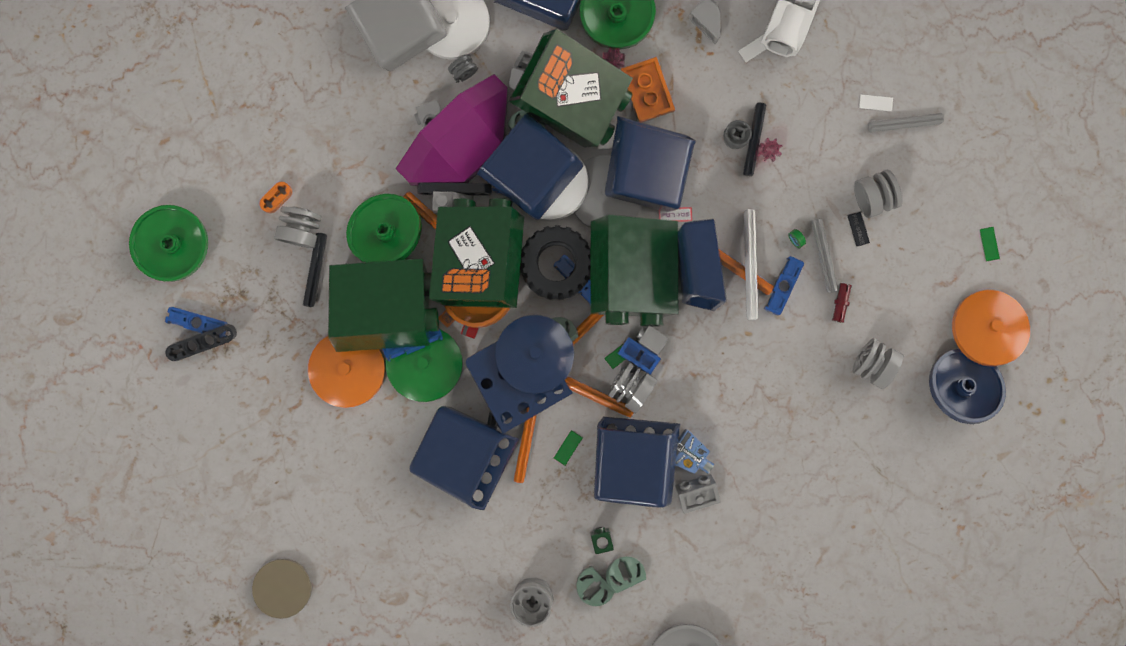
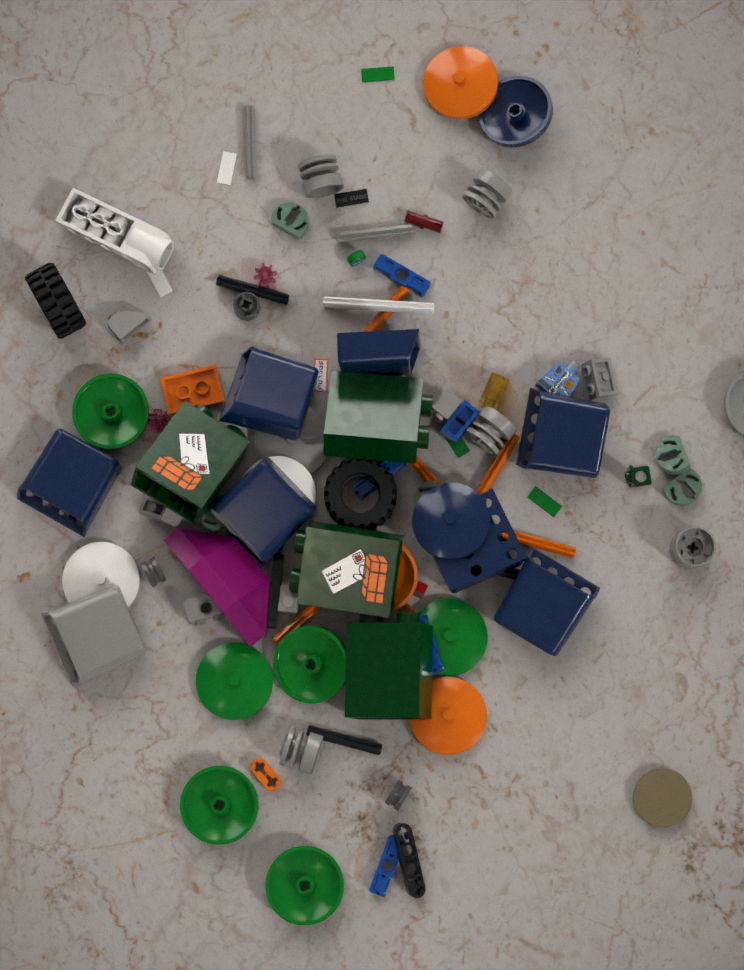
camera: 85 degrees left, 5 degrees down
(240, 154) = (219, 805): none -> green dish
(262, 326) = (398, 795): none -> dark grey wheel
(364, 158) = (234, 681): none -> green dish
(673, 388) = (494, 391): none -> clear yellow torso
(837, 164) = (286, 209): none -> sand green piece

